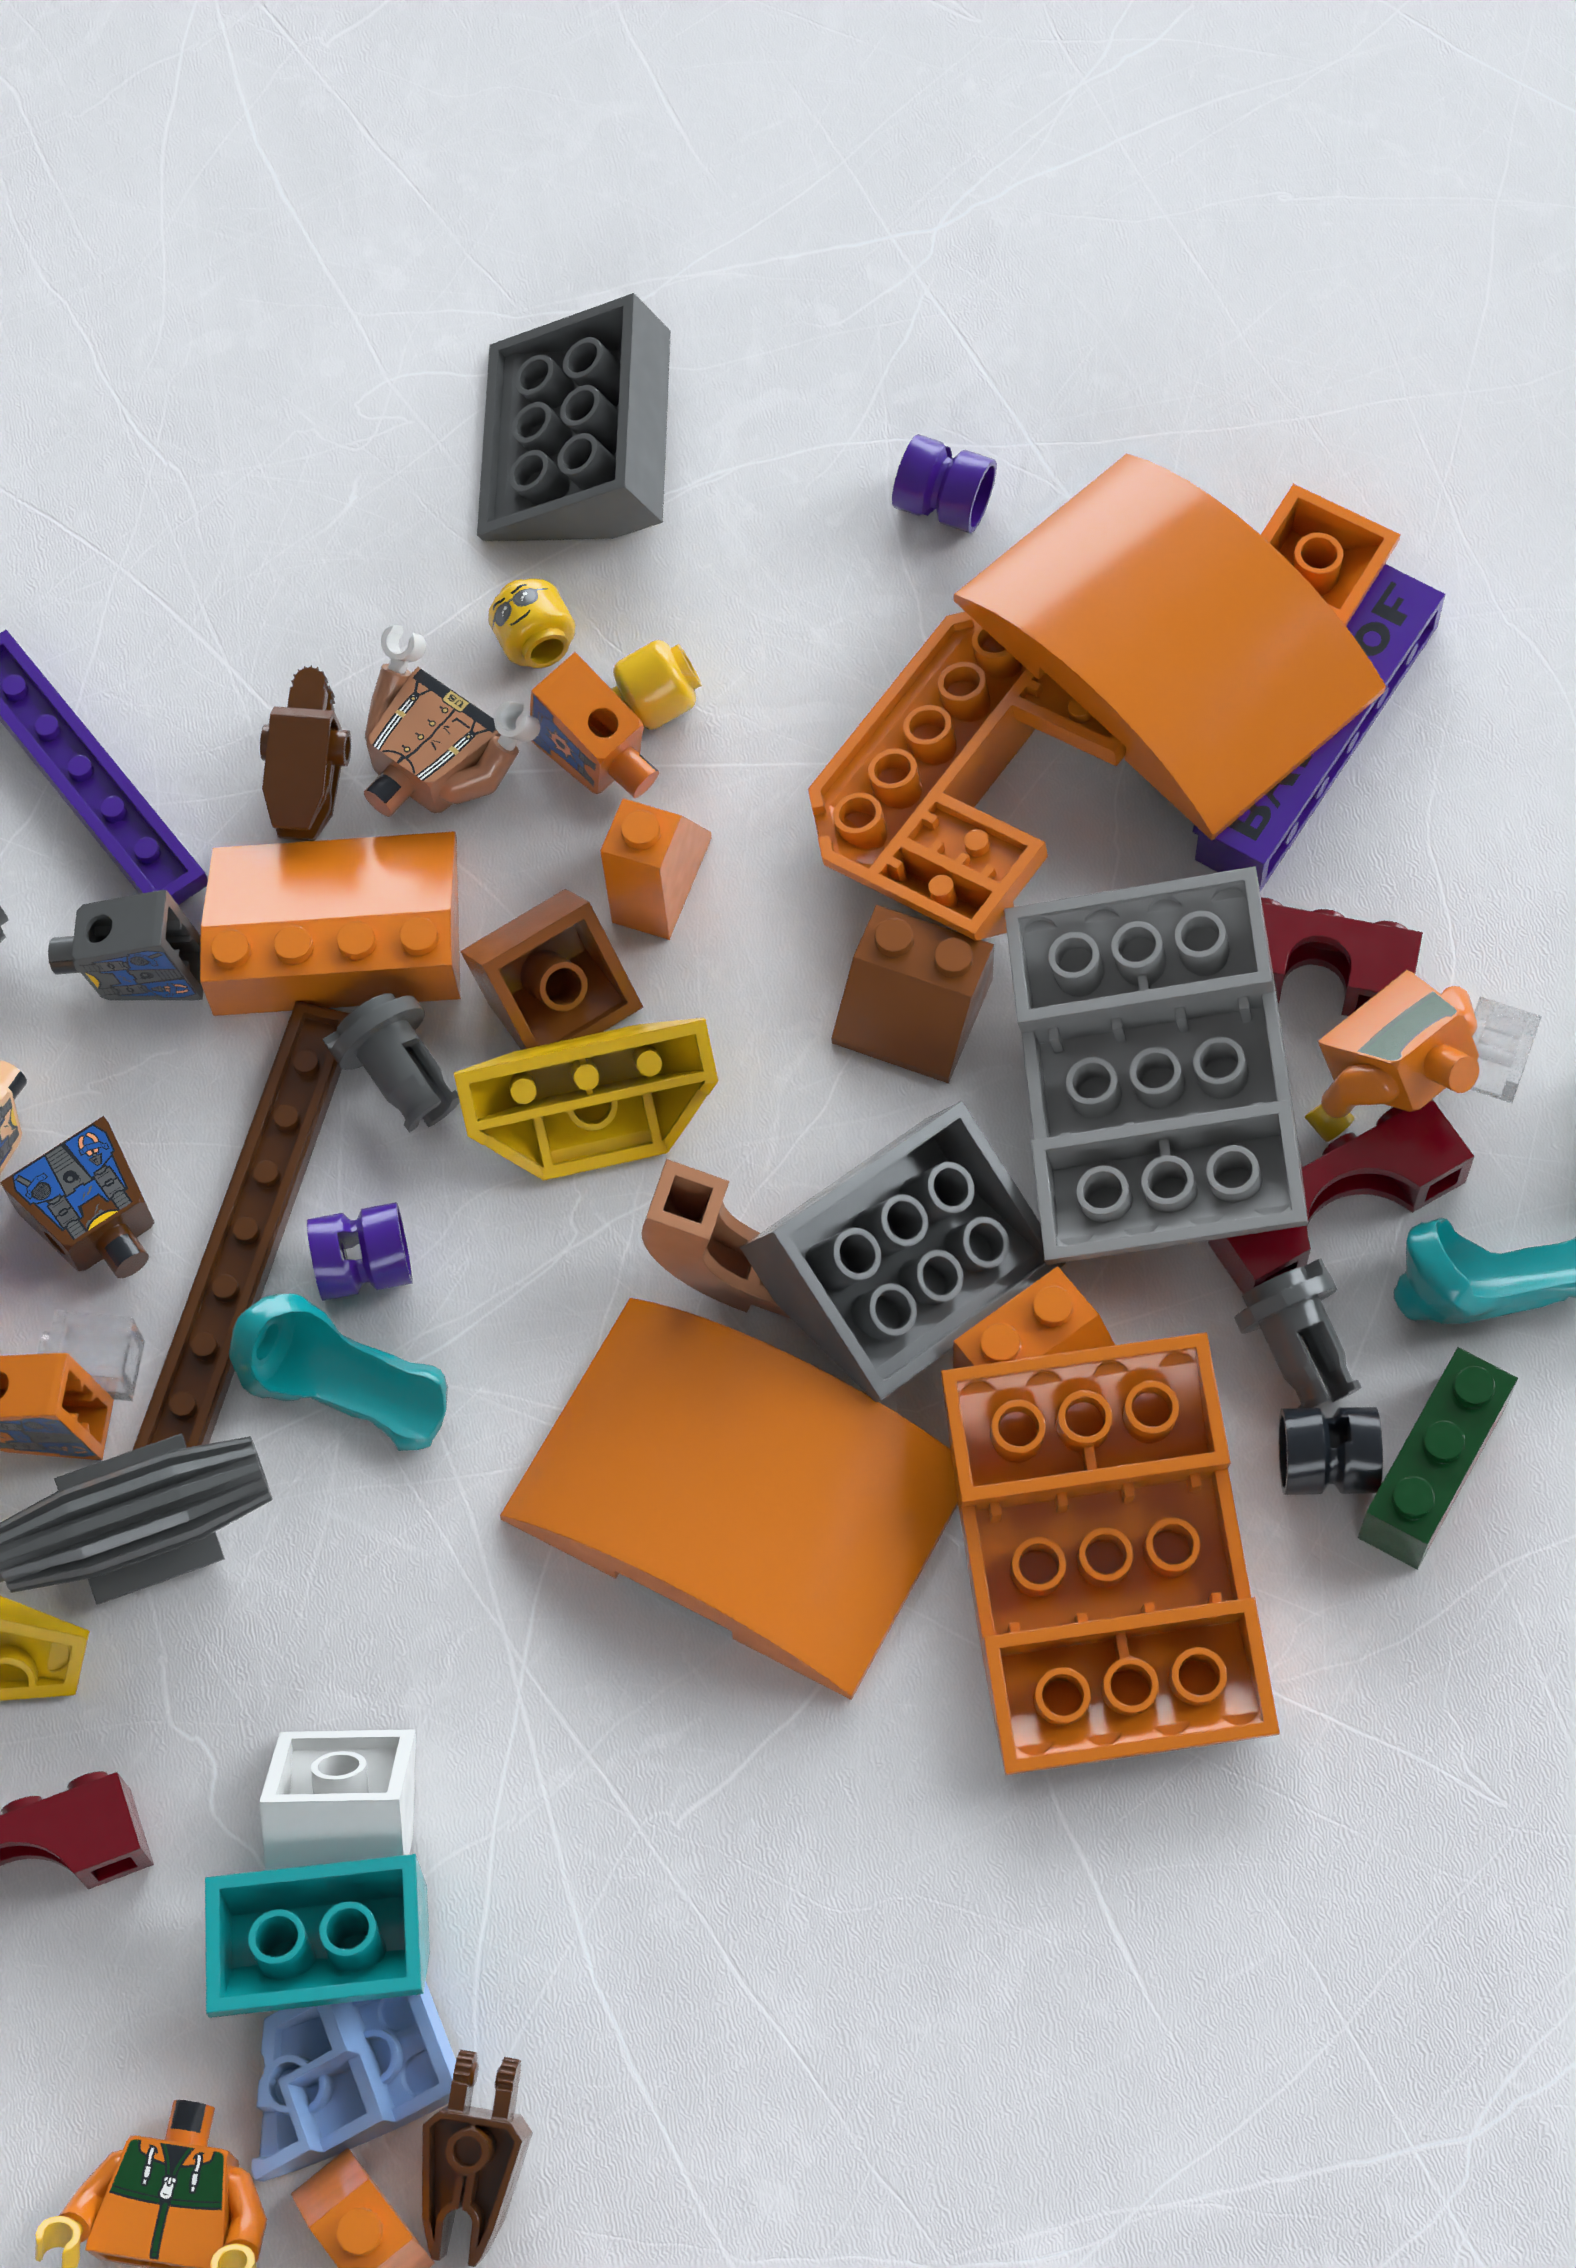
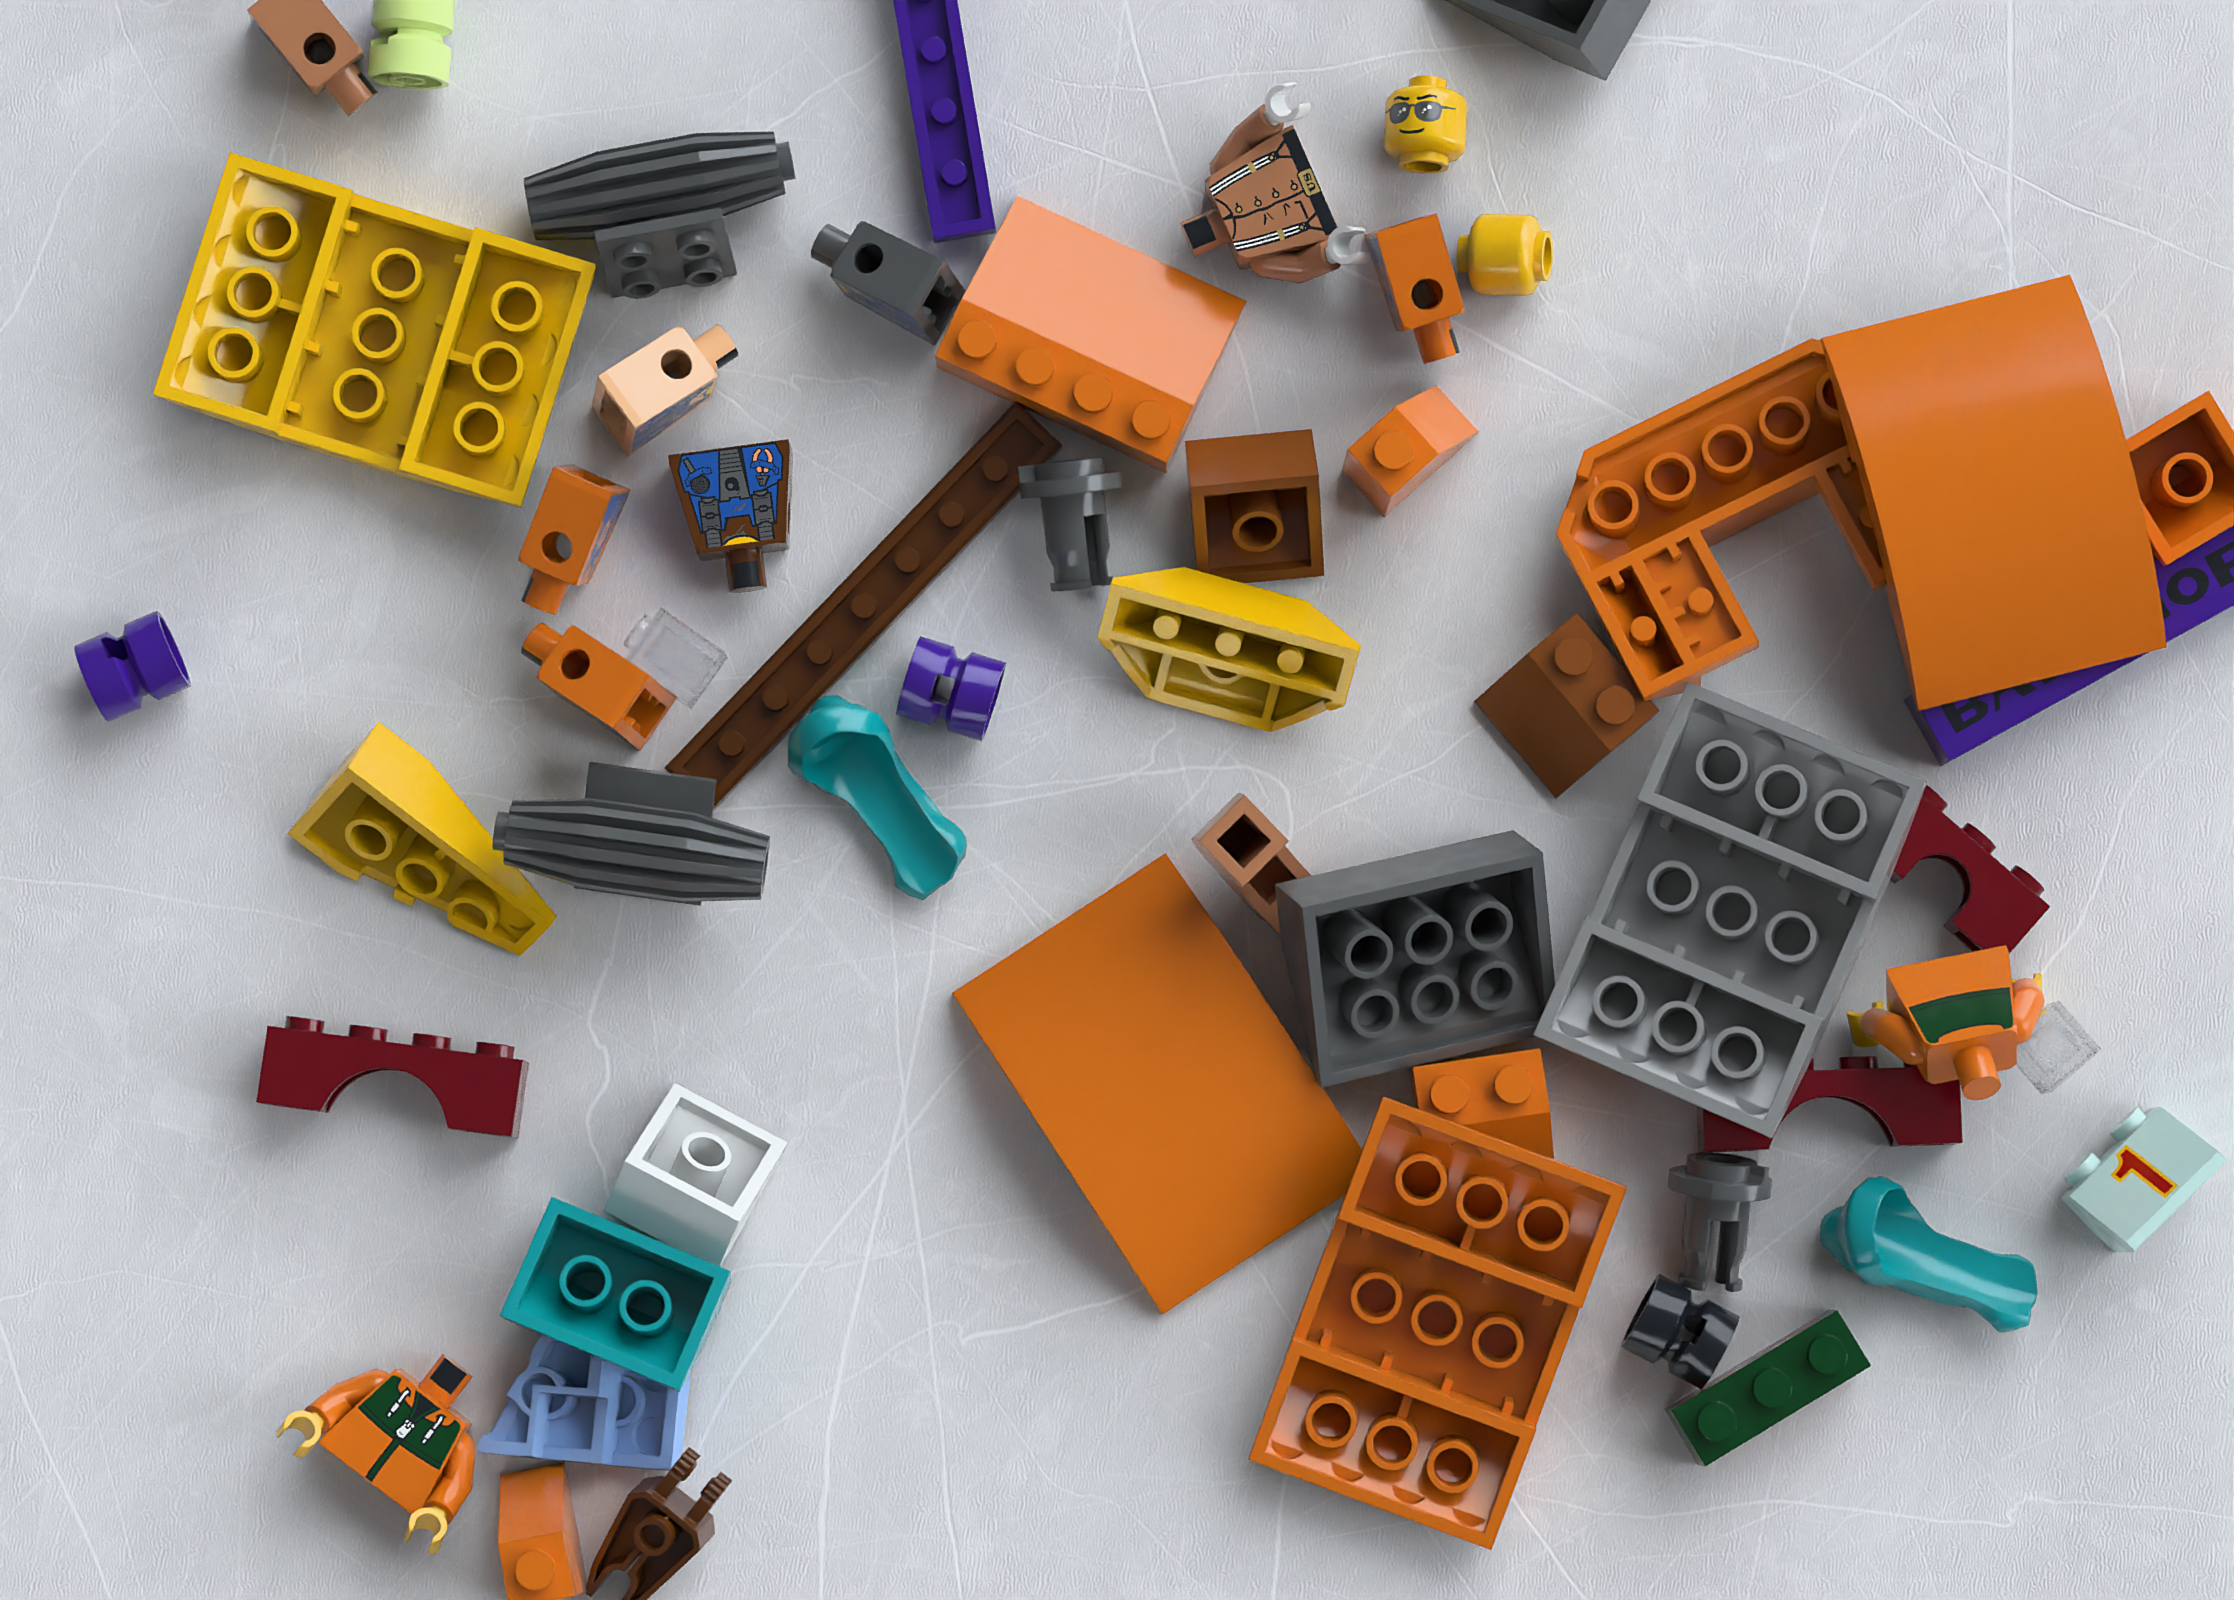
camera: 25 degrees right, 20 degrees up
(303, 758) = (1142, 156): reddish brown hinge -> none
(953, 486) = (1893, 187): dark purple wheel -> none

